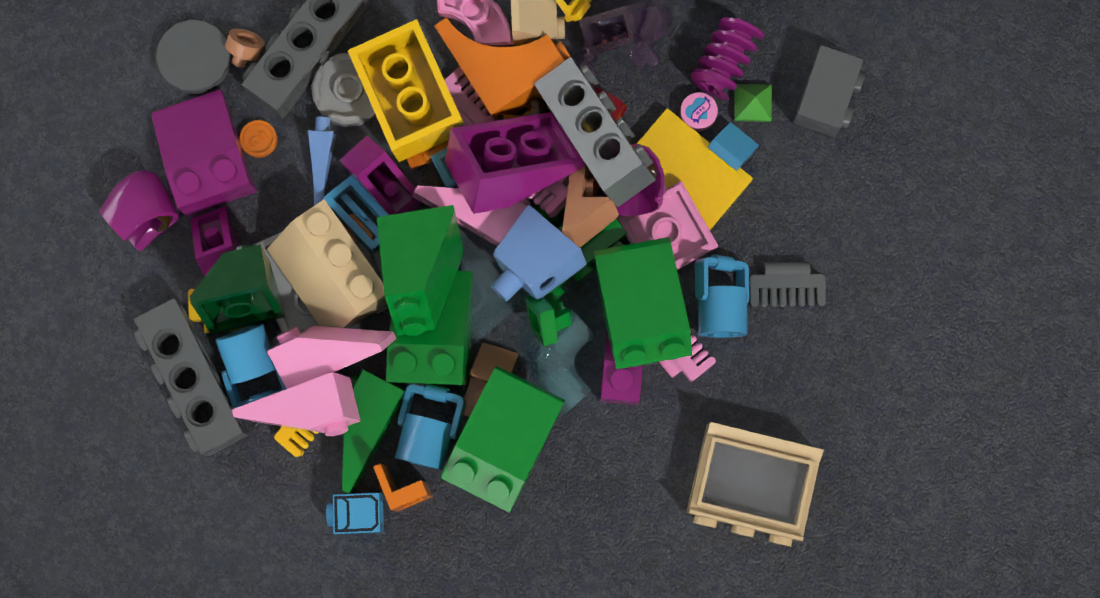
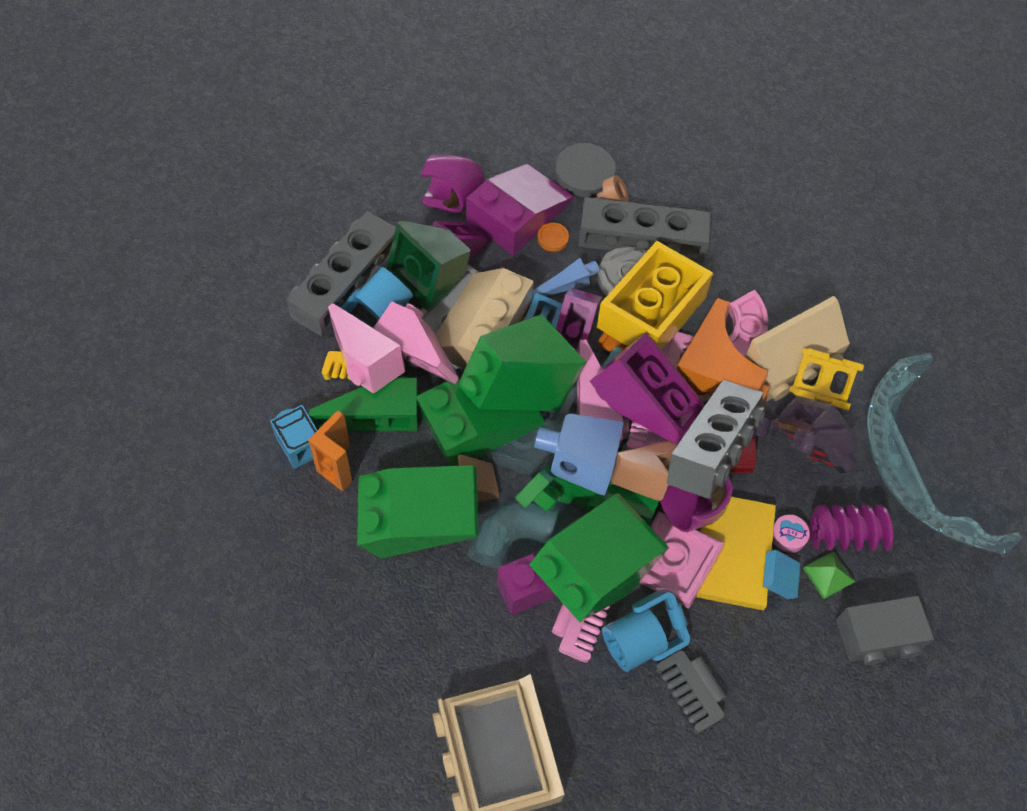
camera: 55 degrees right, 20 degrees down
(426, 439) = (388, 449): dark azure piece -> none

